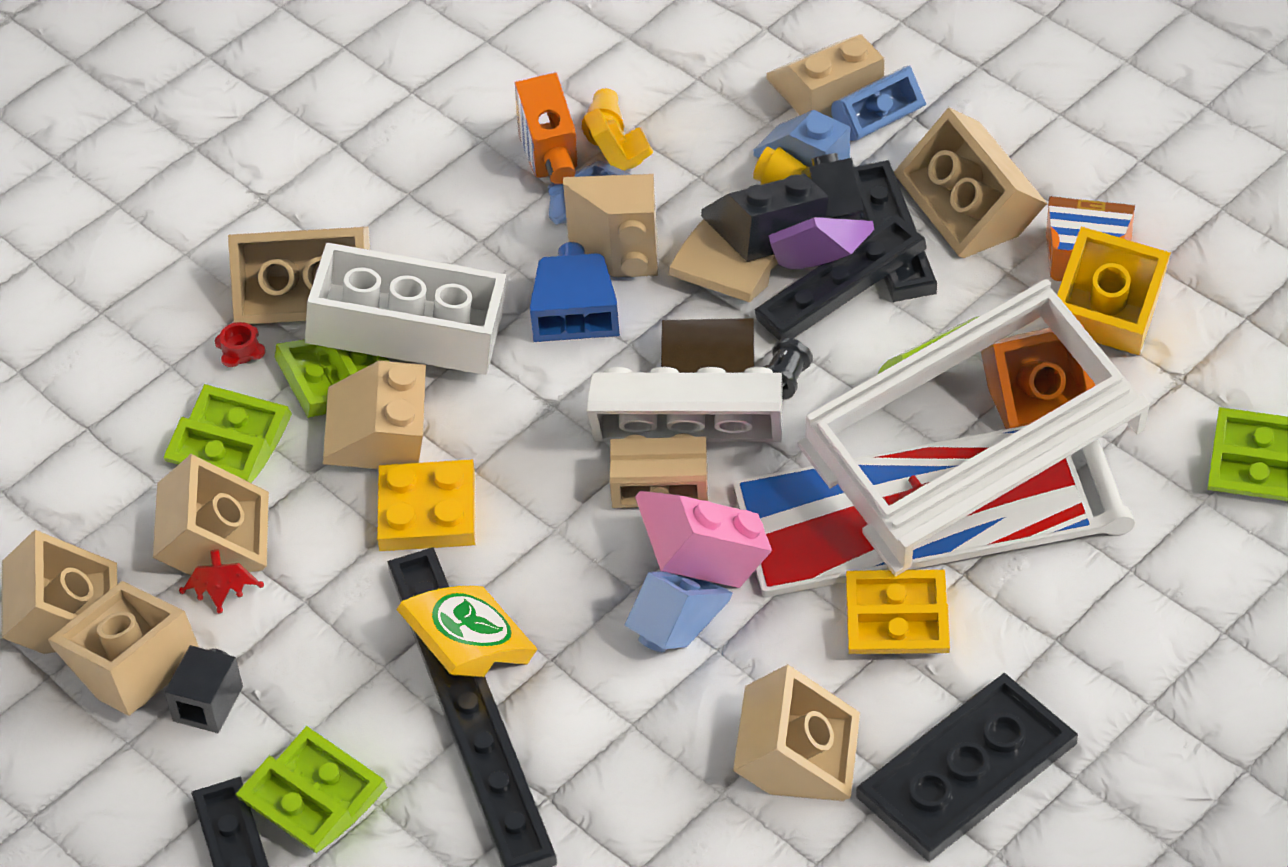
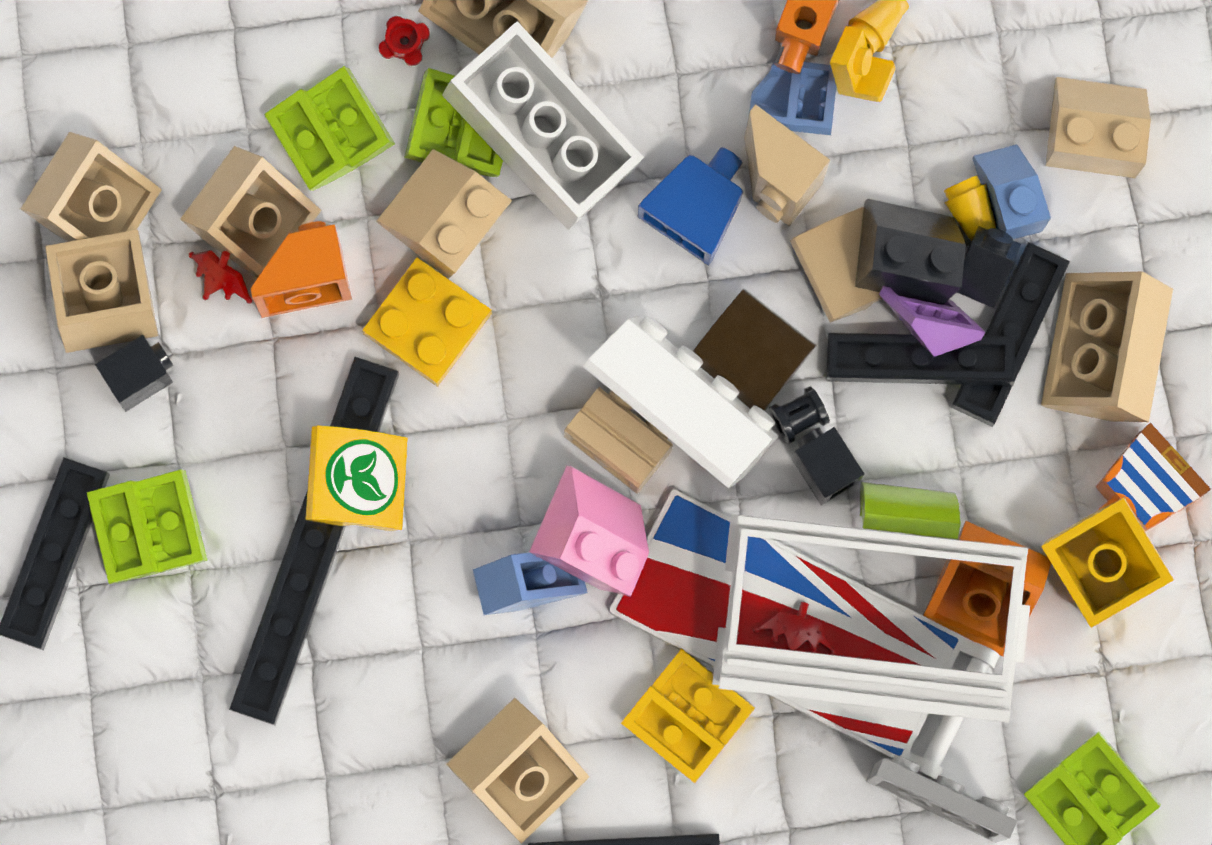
camera: 30 degrees right, 30 degrees up
(299, 516) = (303, 272): none -> orange slope
(833, 374) = (826, 464): none -> black brick
(879, 103) = (1112, 195): medium blue brick -> none
(1152, 514) = (942, 798): none -> light grey plate

